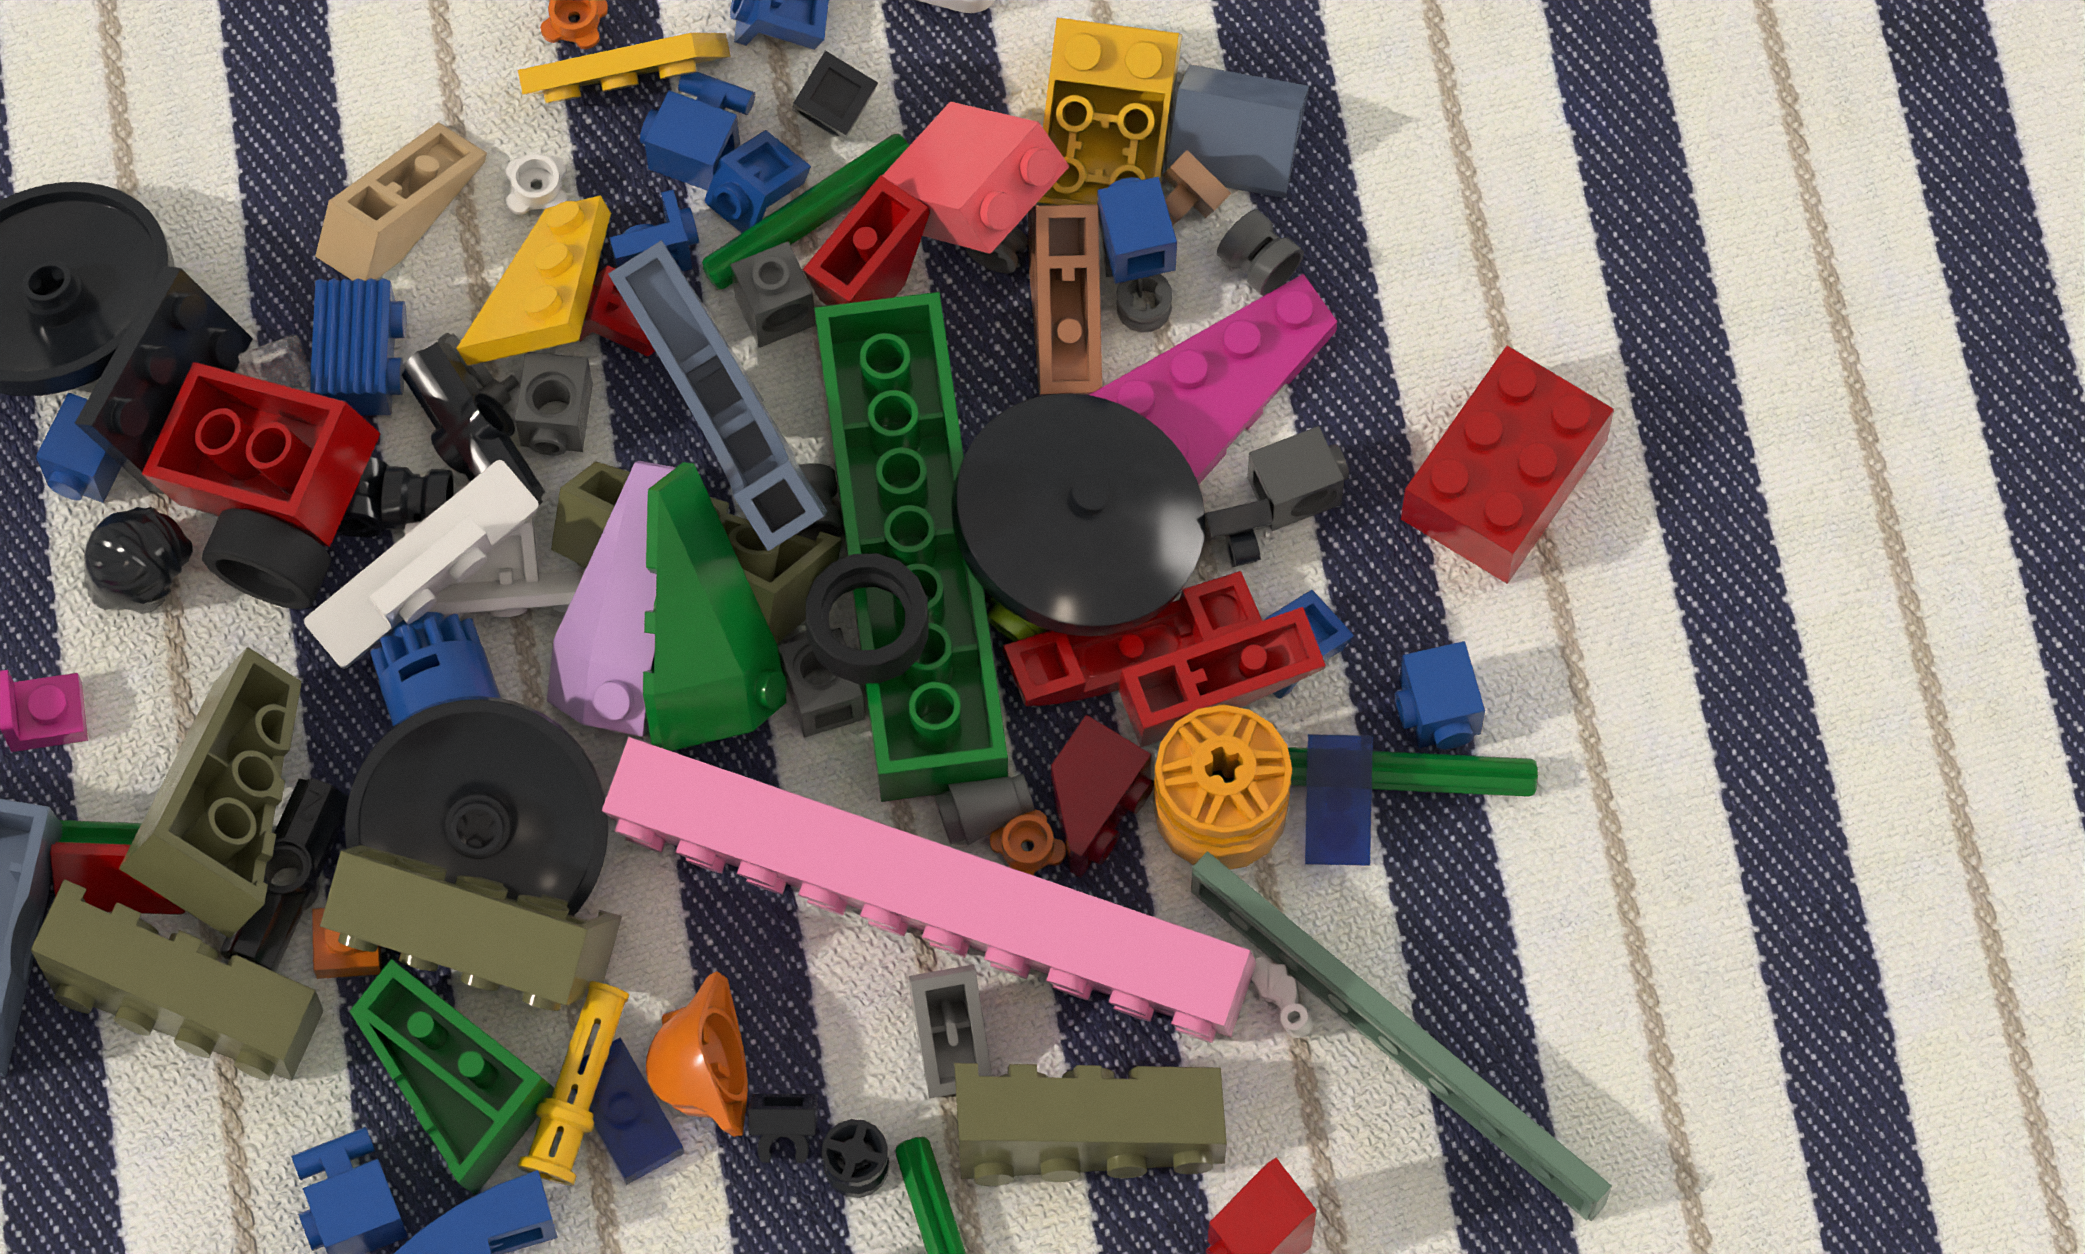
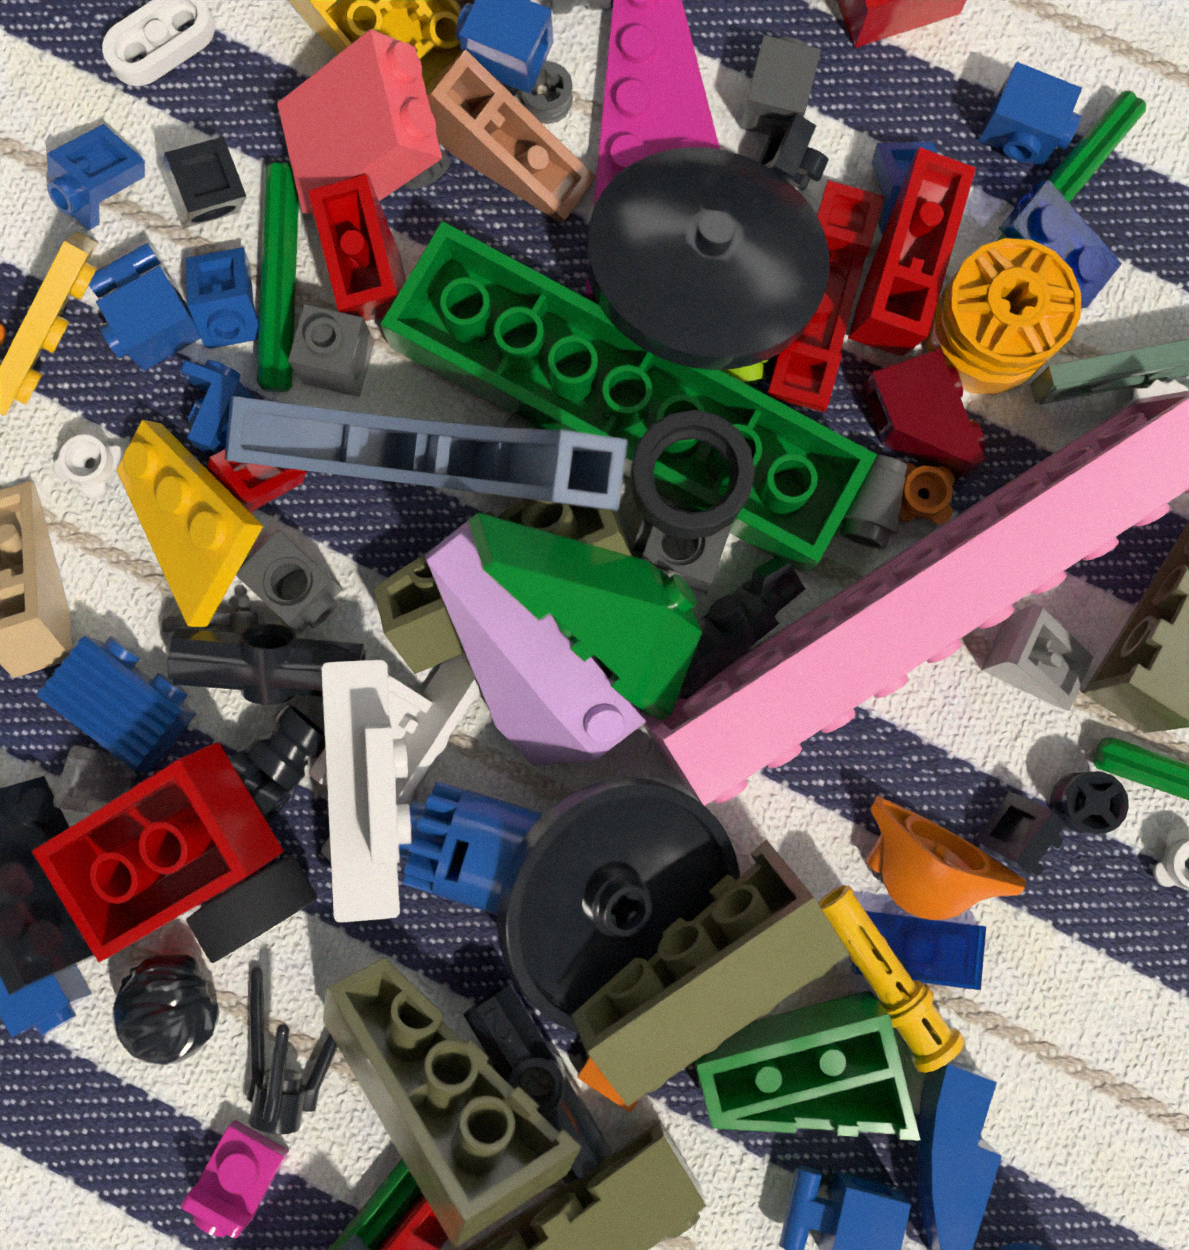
camera: 55 degrees left, 15 degrees up
(128, 692) = (278, 1092): none -> black plant
(789, 764) = (740, 621): none -> black hinge

